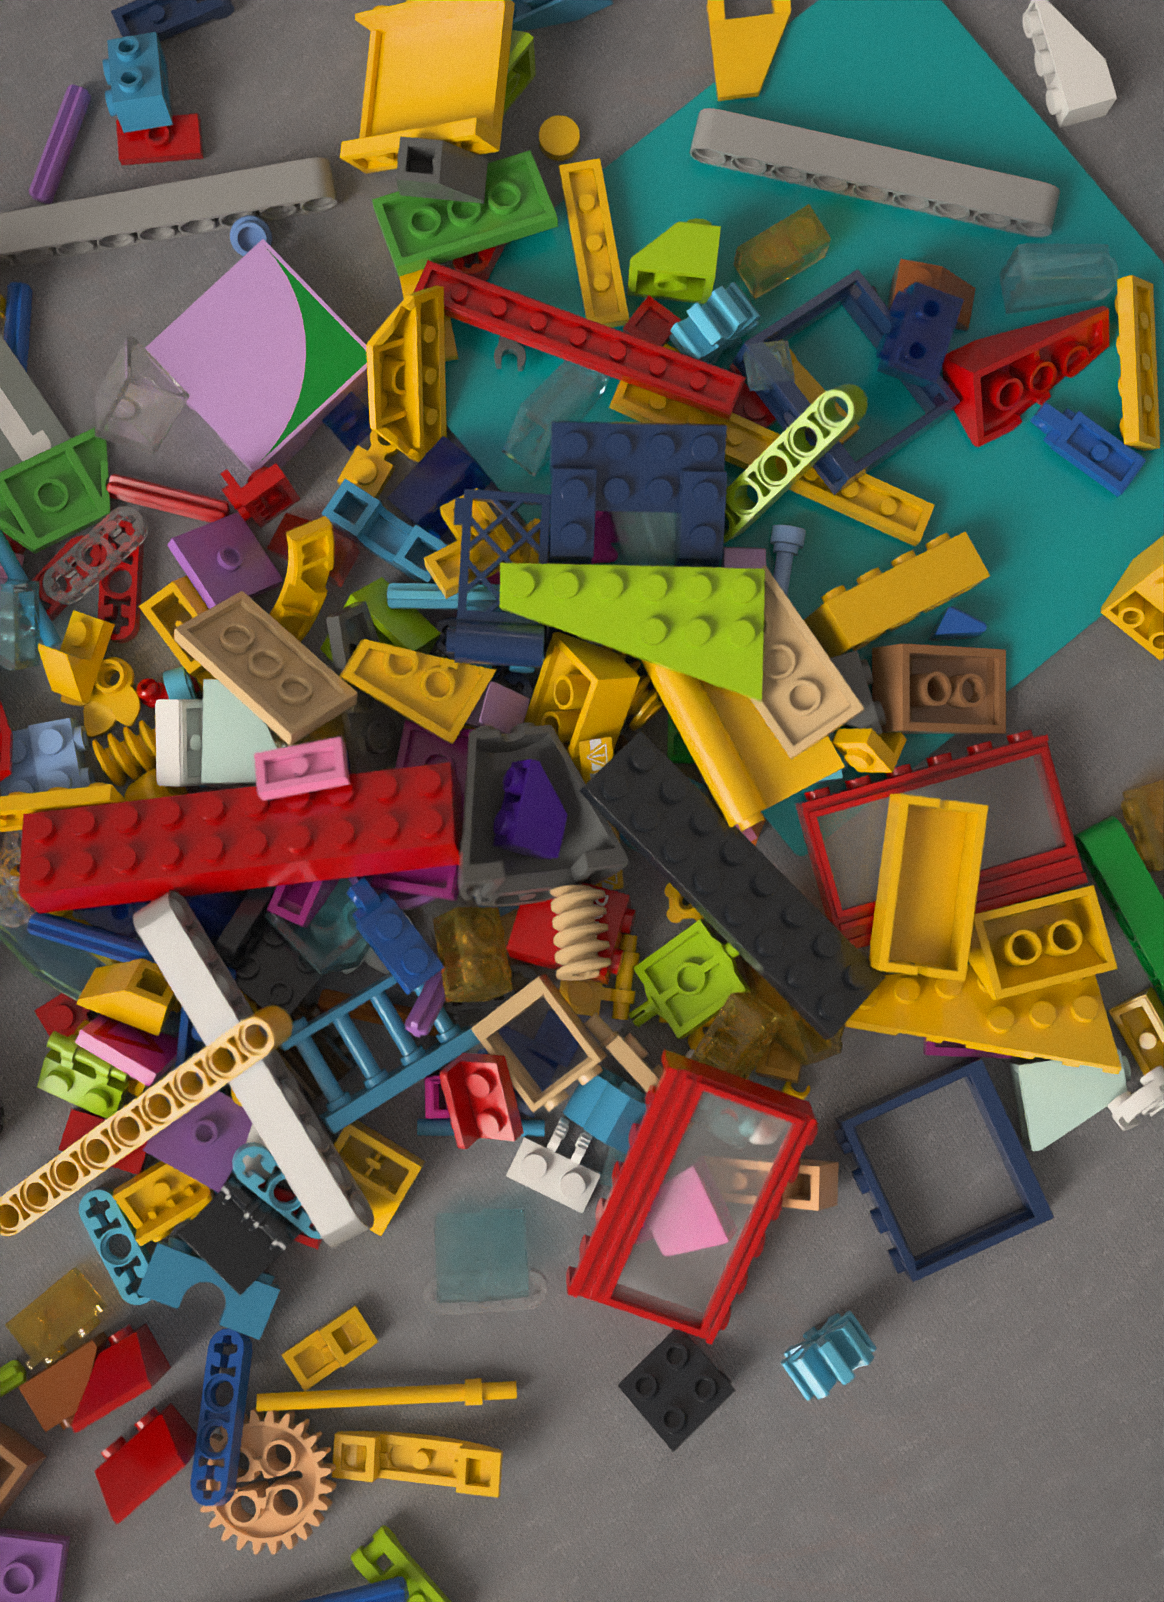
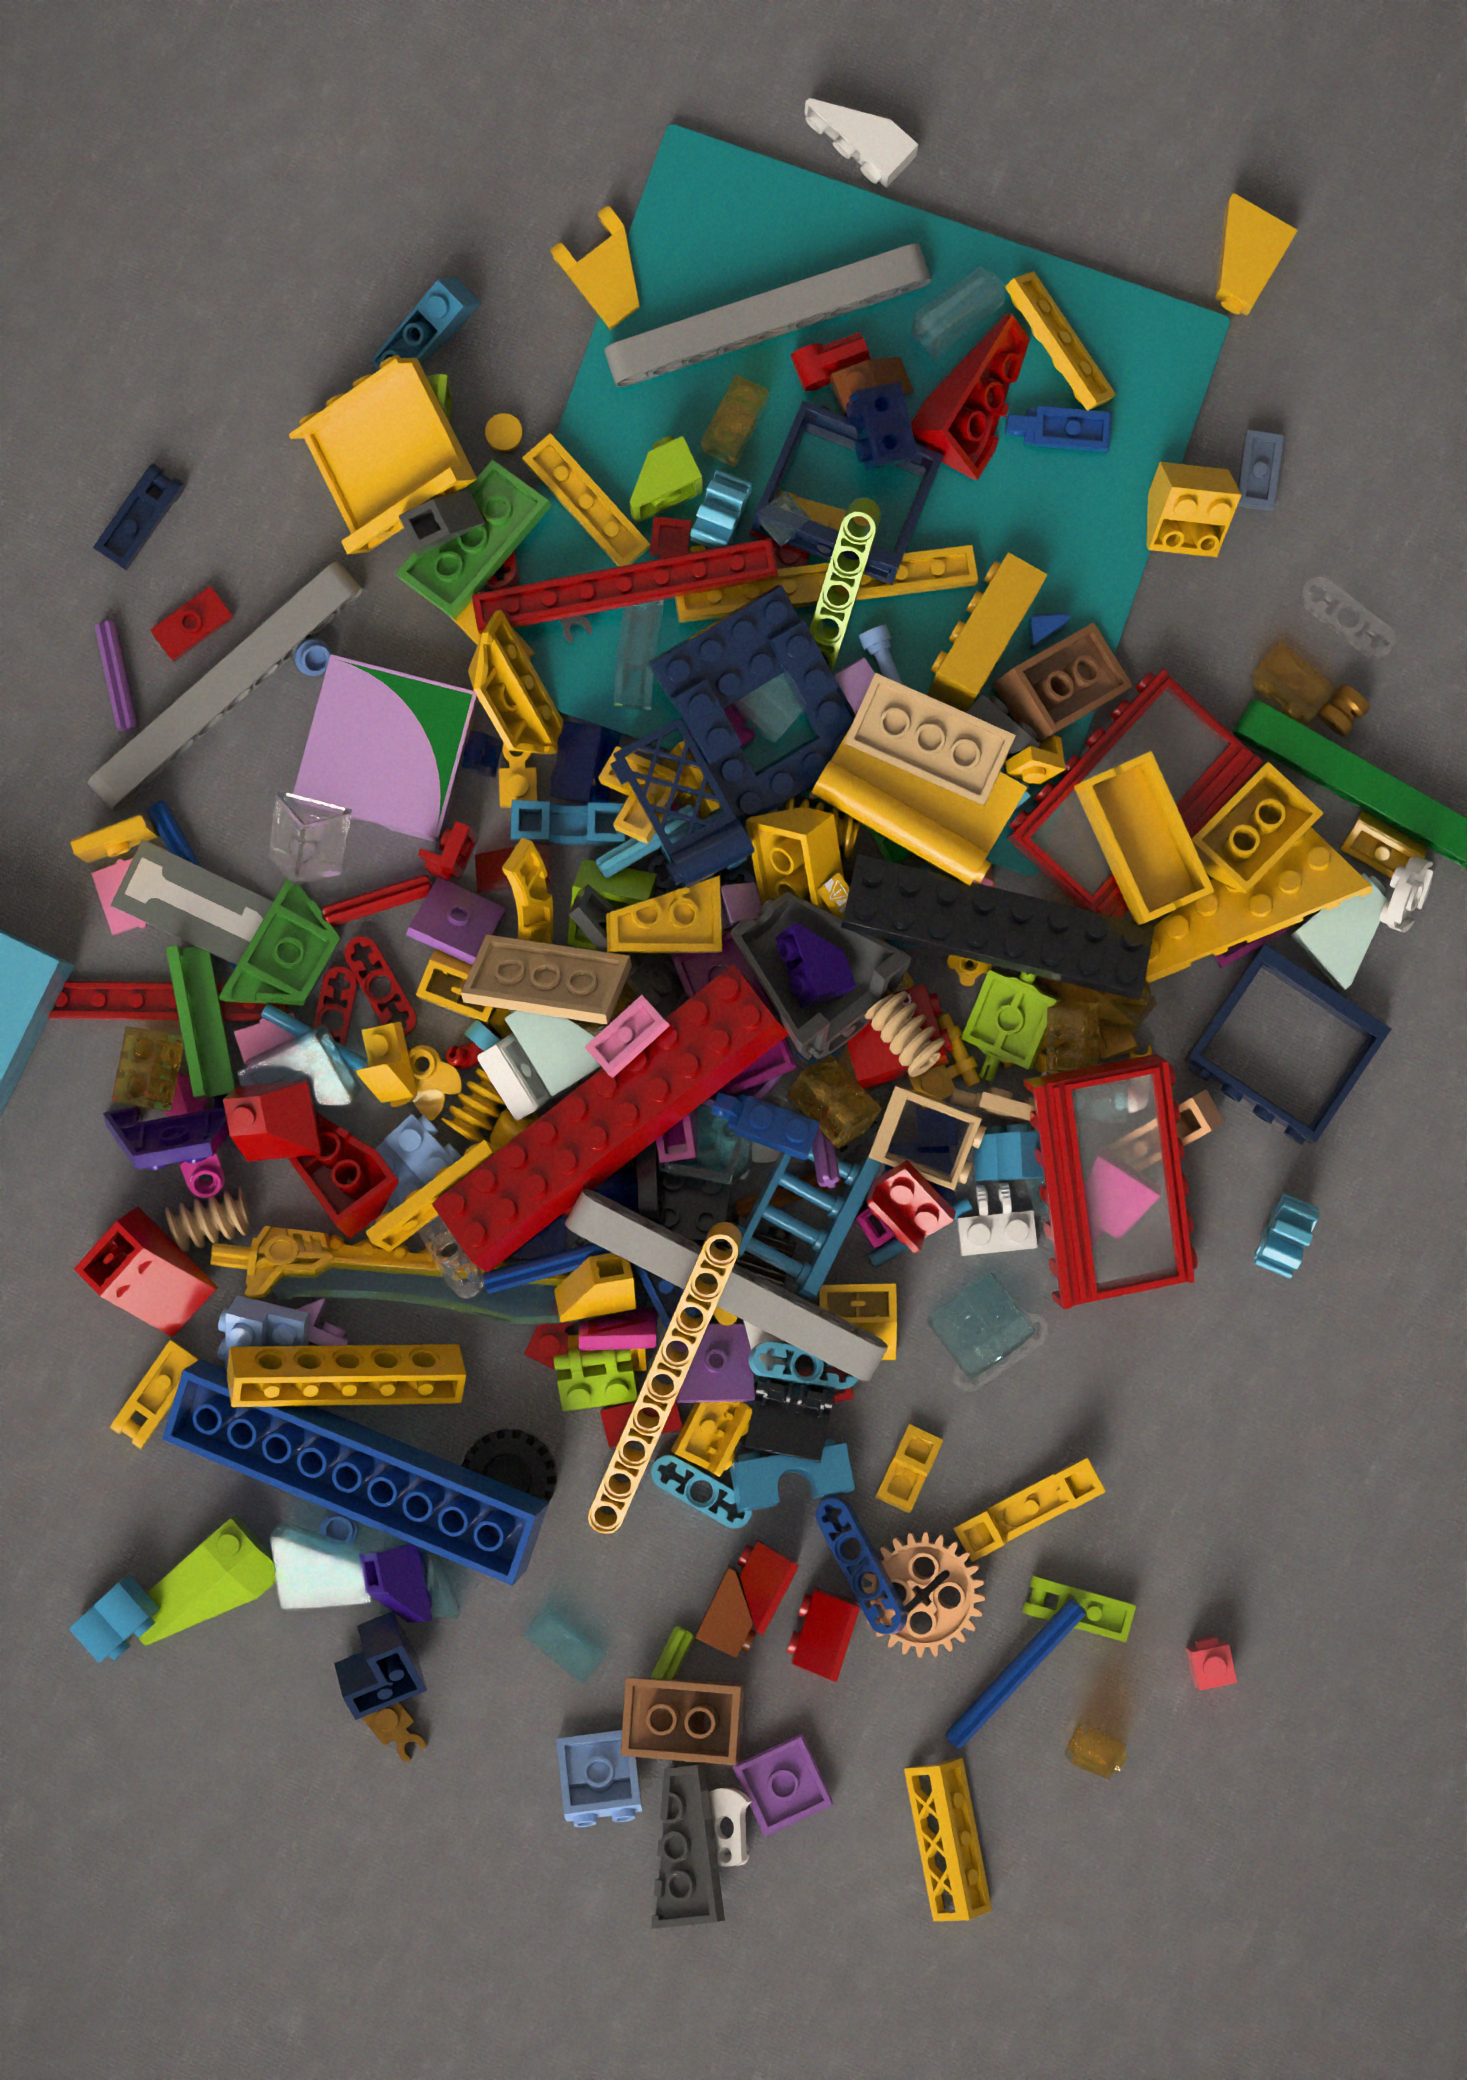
camera: 35 degrees left, 0 degrees up
(55, 1316) = (687, 1575): clear yellow bracket -> none
(114, 557) = (368, 952): clear beam -> none
(137, 82) = (153, 589): dark azure brick -> none
(471, 1392) = (1036, 1433): yellow bar -> none
(674, 617) = (831, 754): lime wing -> none
(676, 1388) = (1189, 1333): black hinge -> none
(893, 241) = (818, 361): none -> red piece

